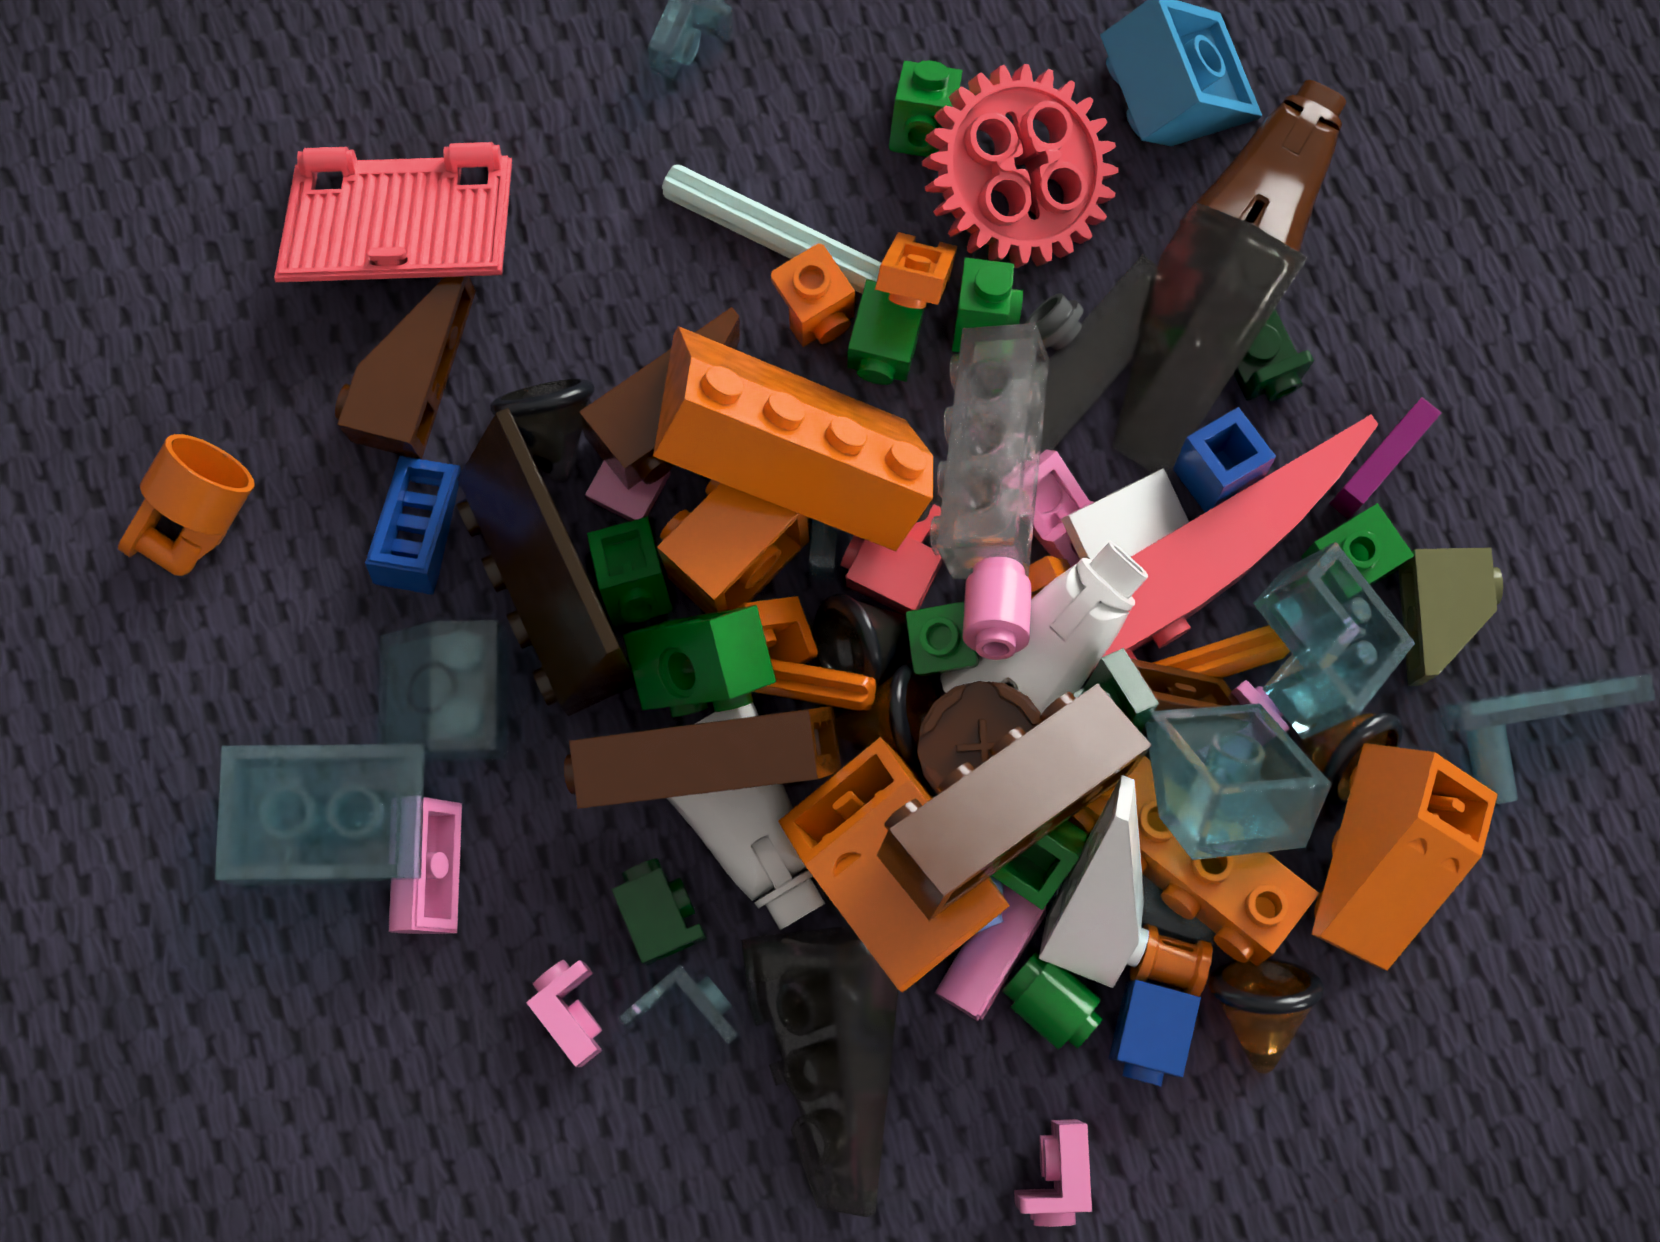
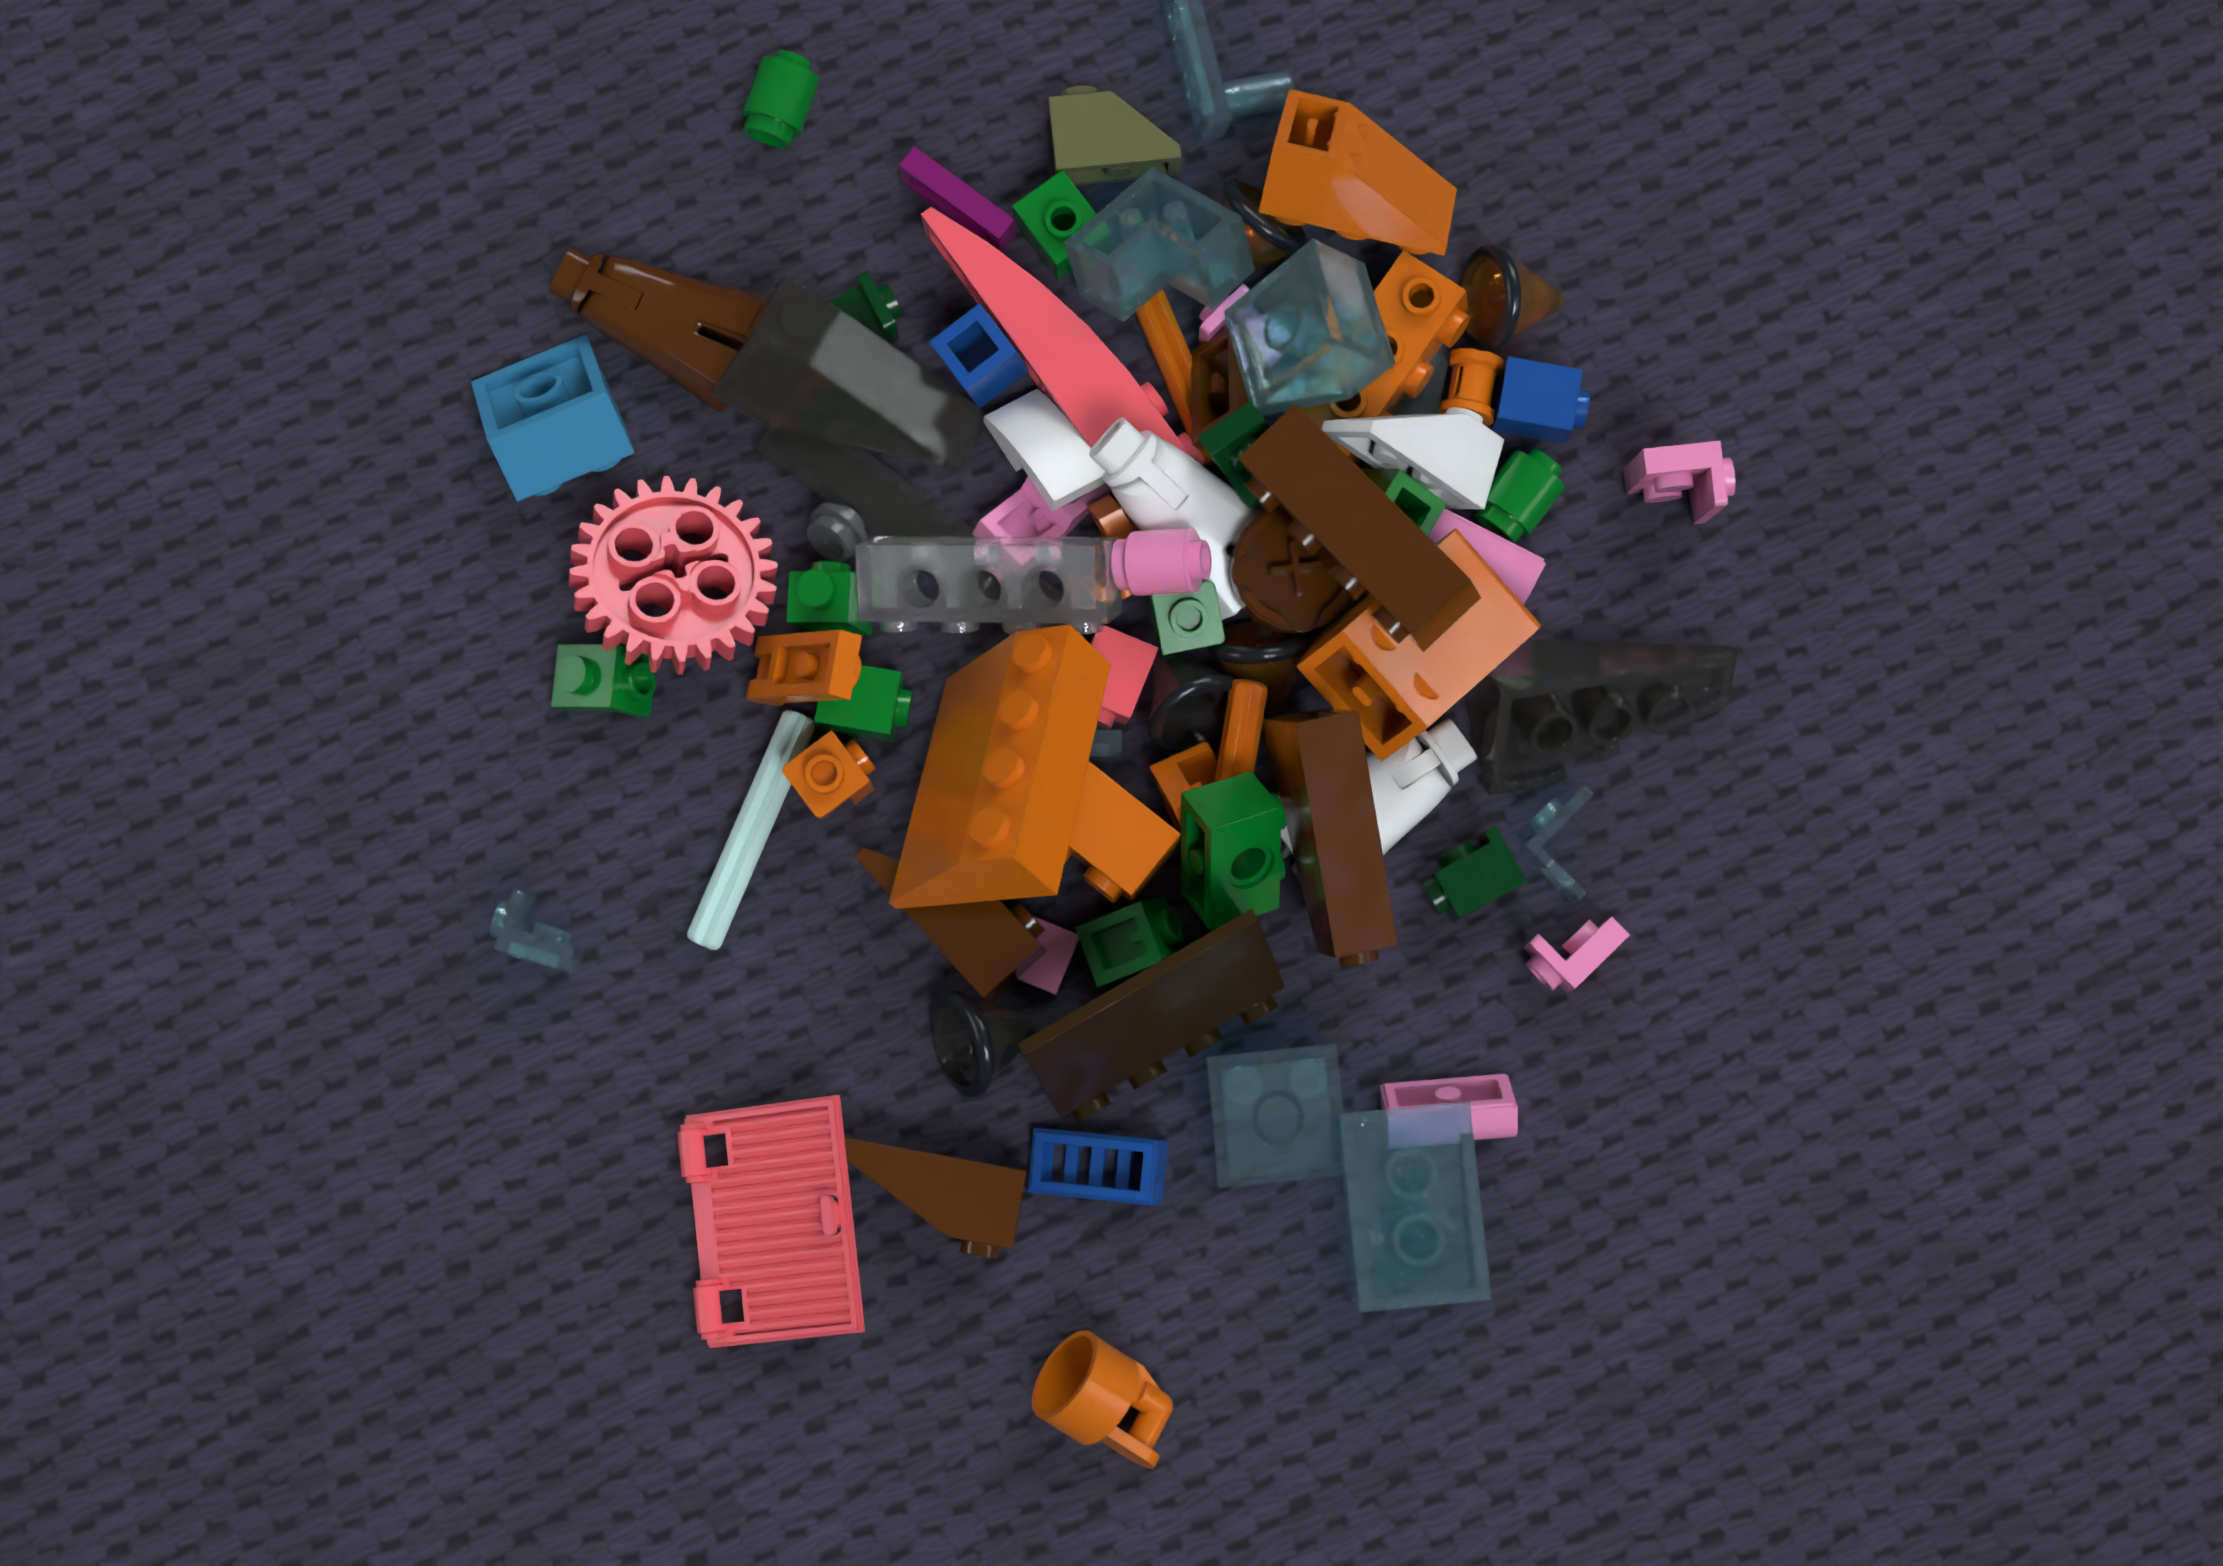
camera: 95 degrees left, 5 degrees up
(1492, 298) = (779, 99): none -> green brick

